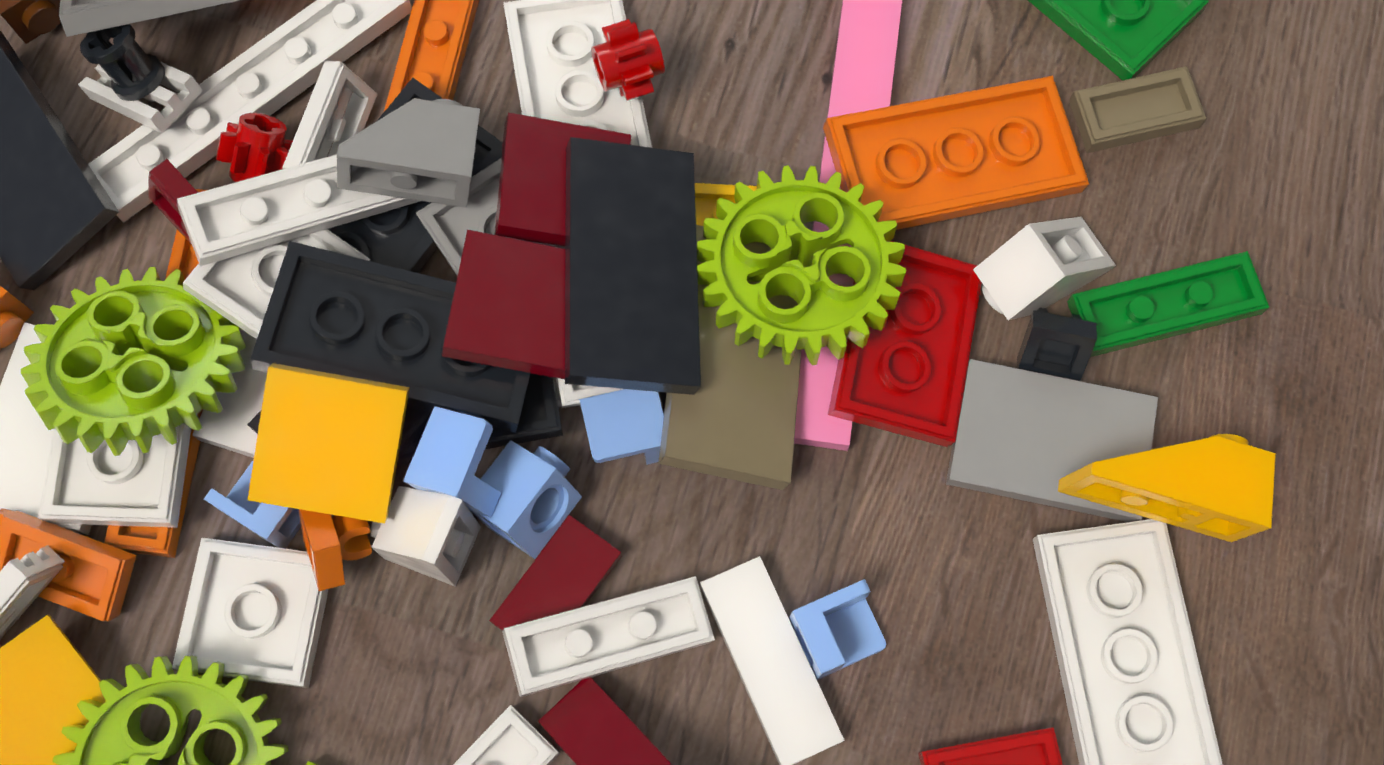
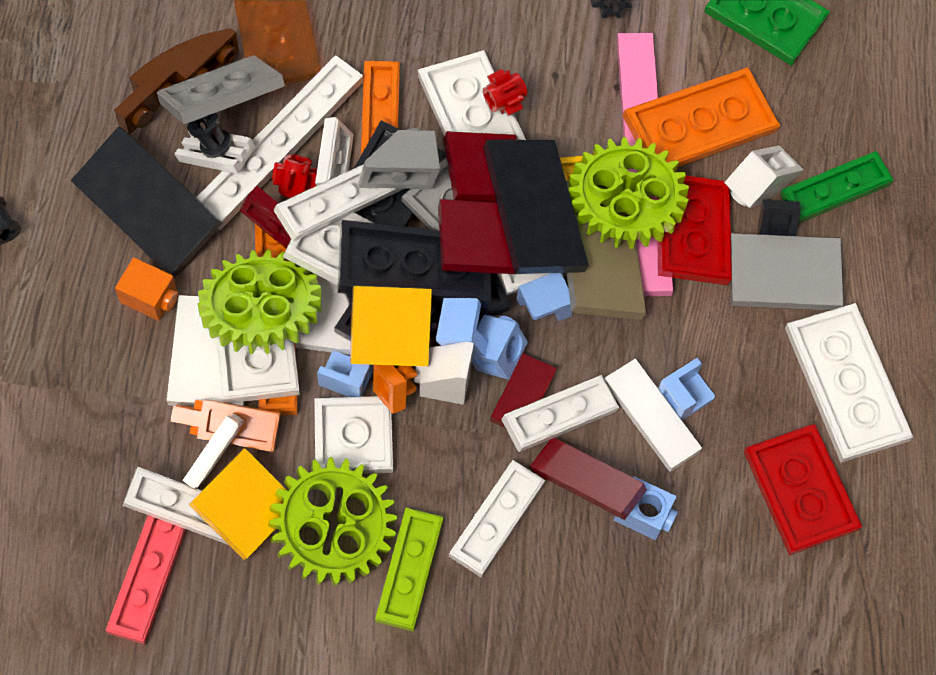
camera: 15 degrees left, 5 degrees down
(1137, 109) = (799, 79): dark tan tile -> none
(1198, 485) = (869, 281): yellow slope -> none

